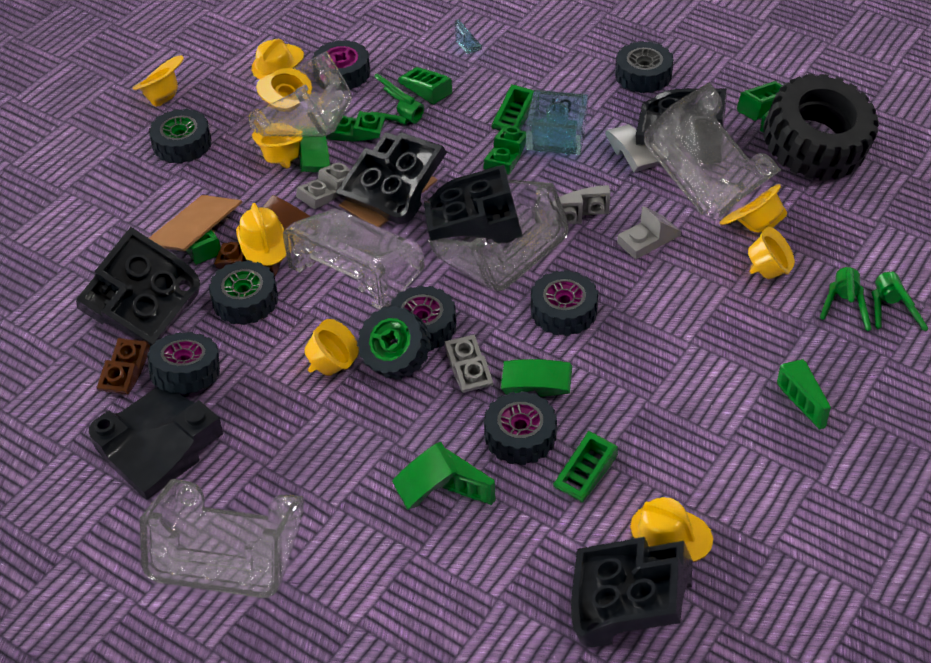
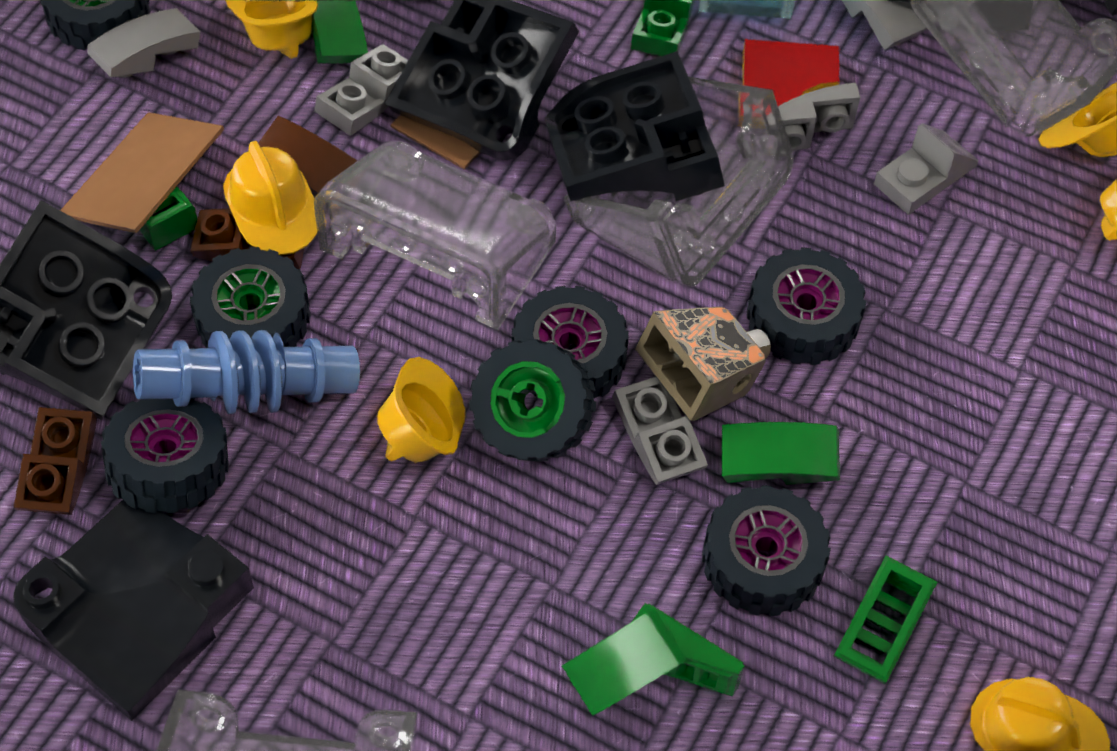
camera: 10 degrees left, 10 degrees up
(198, 159) = (134, 44): none -> light grey slope
(234, 320) = (247, 369): none -> medium blue piece
(497, 324) = (703, 357): none -> dark tan torso
(573, 178) = (789, 67): none -> red tile

